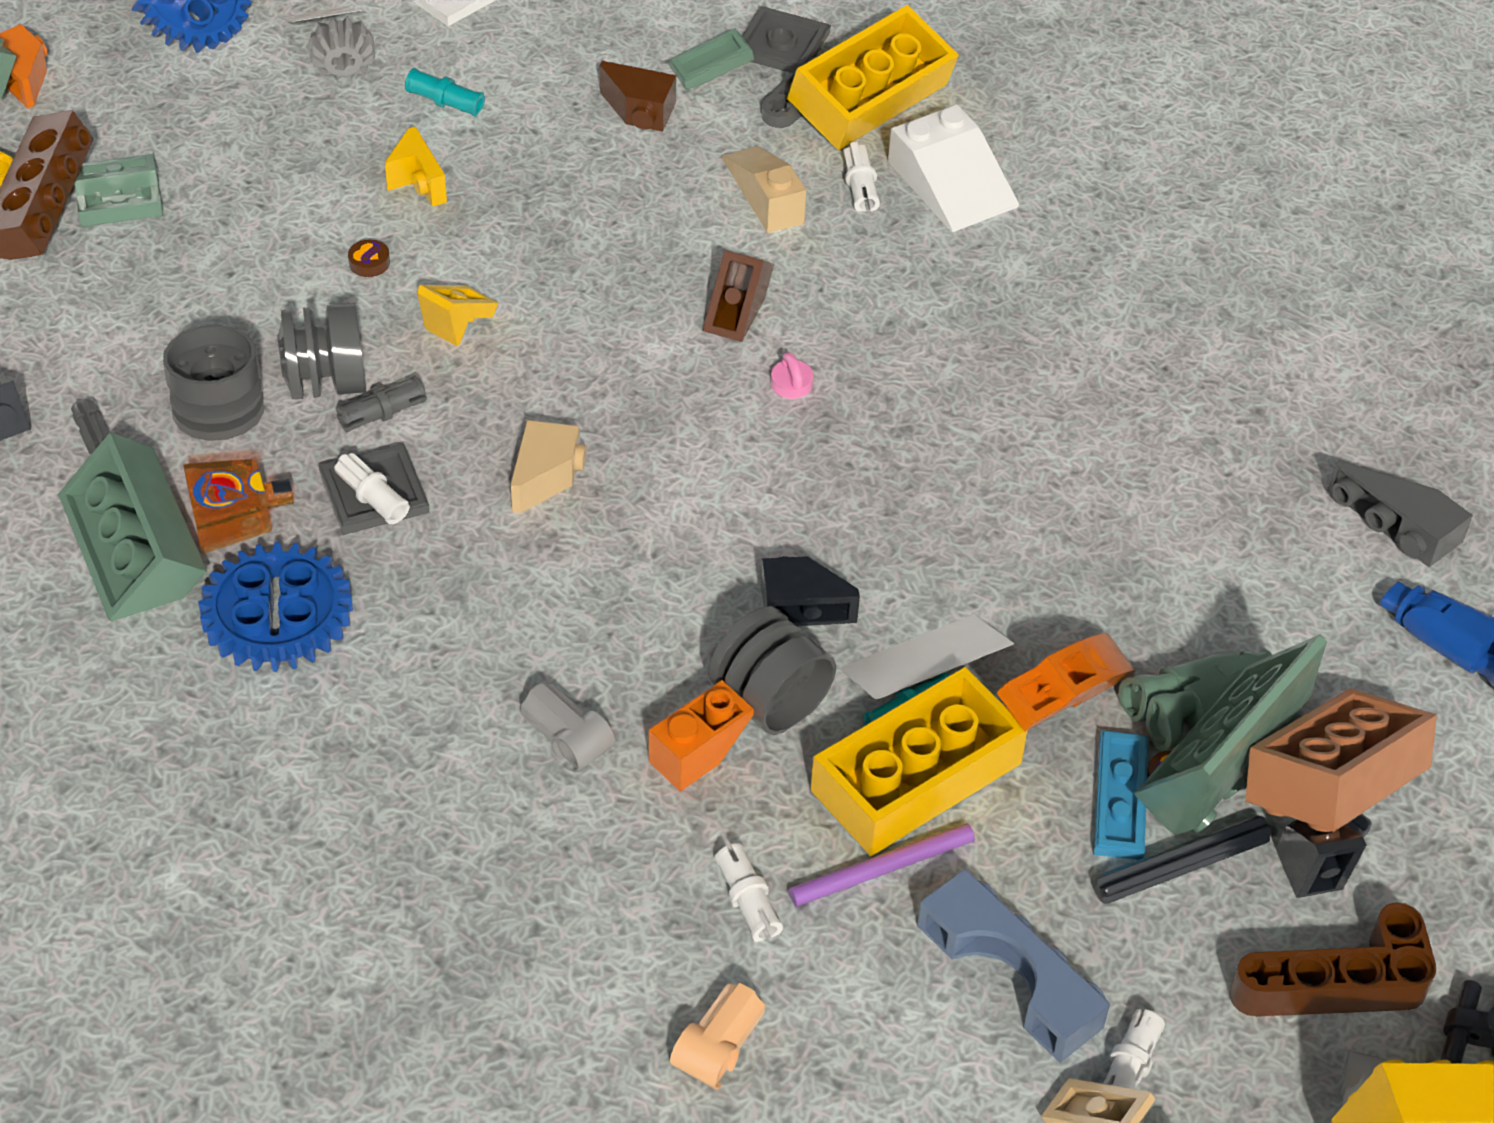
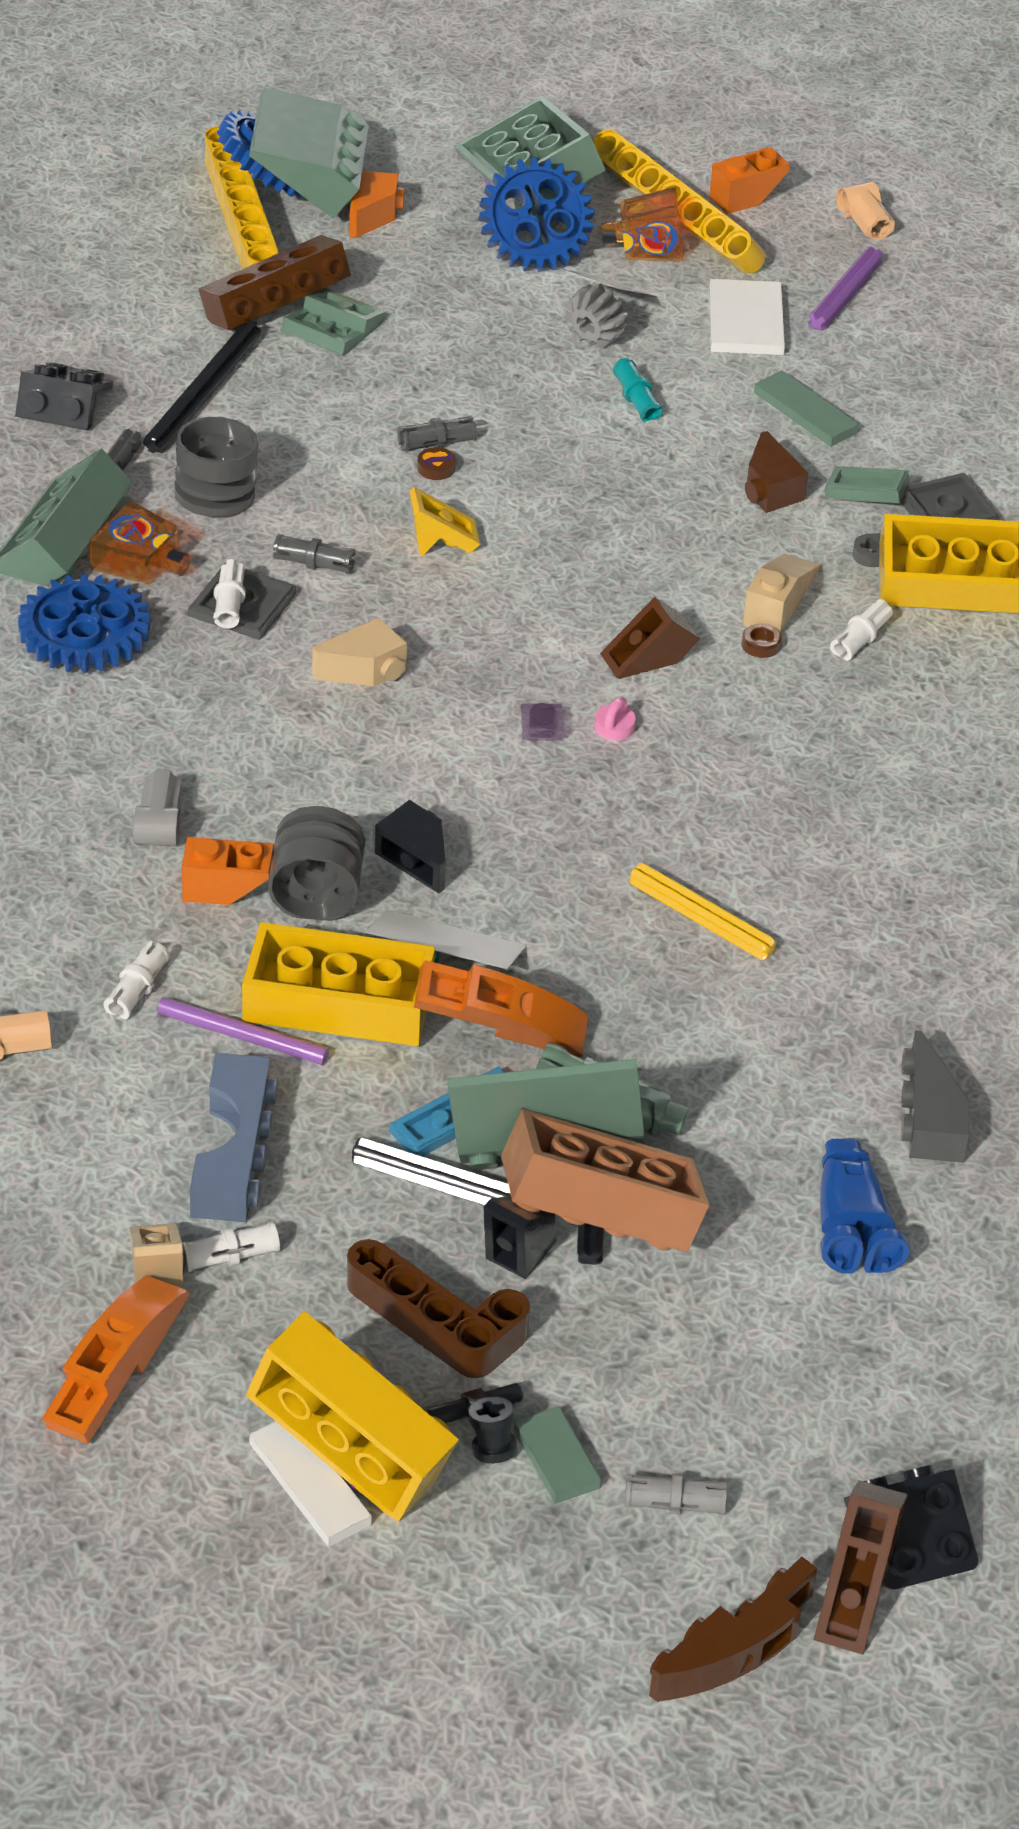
camera: 45 degrees right, 5 degrees down
(85, 323) = (202, 387): none -> black axle
(322, 351) = (307, 491): dark grey wheel -> none
(338, 231) = (436, 433): none -> dark grey pin
(414, 164) = (541, 422): yellow slope -> none
(582, 27) = (806, 408): none -> sand green tile
(741, 419) = (542, 722): none -> clear purple plate
(801, 236) = (761, 640): none -> reddish brown tile
(951, 168) = (938, 665): white slope -> none
(1056, 485) = (703, 911): none -> yellow axle

